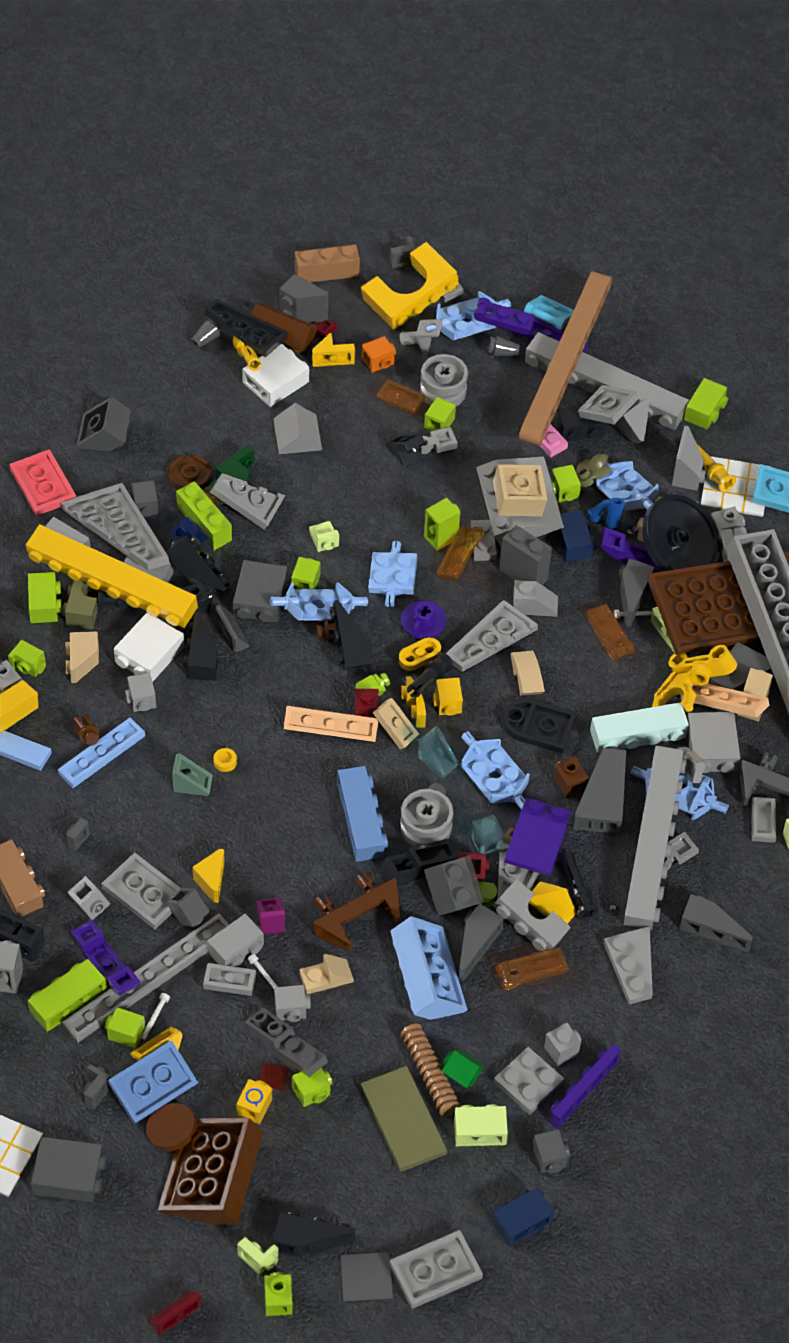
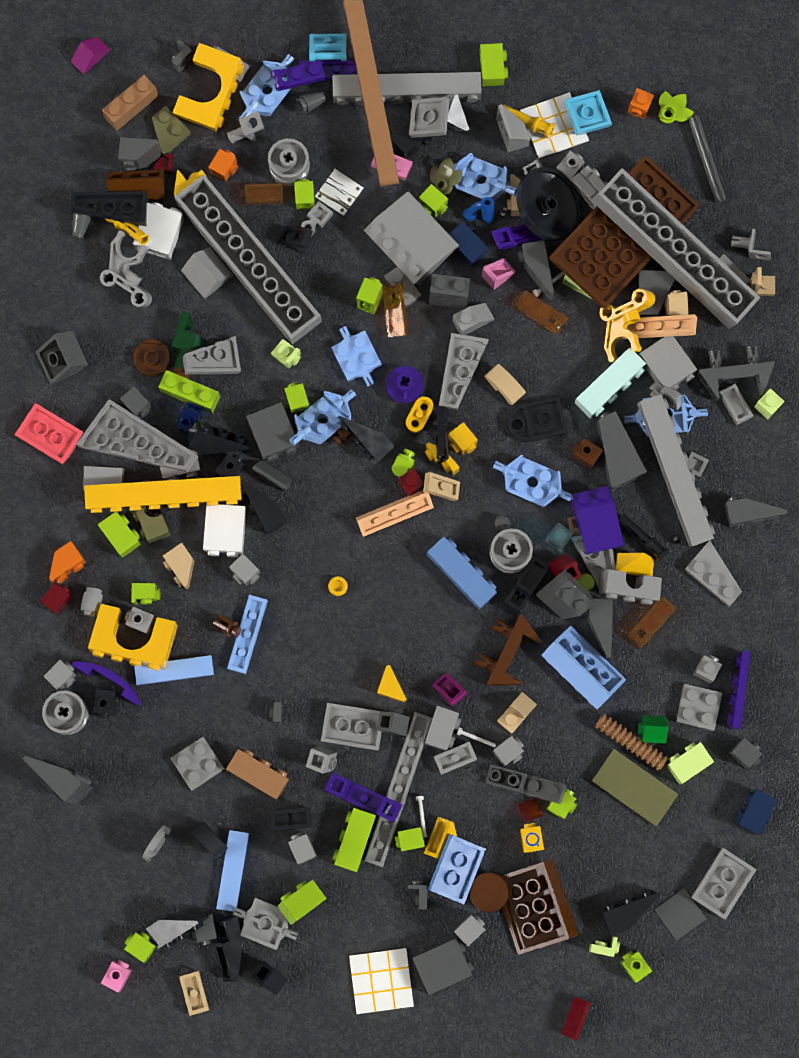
camera: 30 degrees left, 25 degrees up
(123, 1144) = (470, 929): none -> light grey brick
(190, 777) = (326, 617): sand green slope -> none
(212, 386) = (121, 274): none -> light grey piece
(318, 211) = (89, 54): none -> magenta slope
(344, 439) = (248, 259): none -> light grey brick
(348, 305) = (169, 130): none -> olive wing
(437, 753) = (485, 492): clear light blue slope -> none
(477, 434) = (339, 192): none -> white sticker
(520, 490) = (416, 240): tan container -> none
(587, 574) = (497, 273): none -> bright pink slope

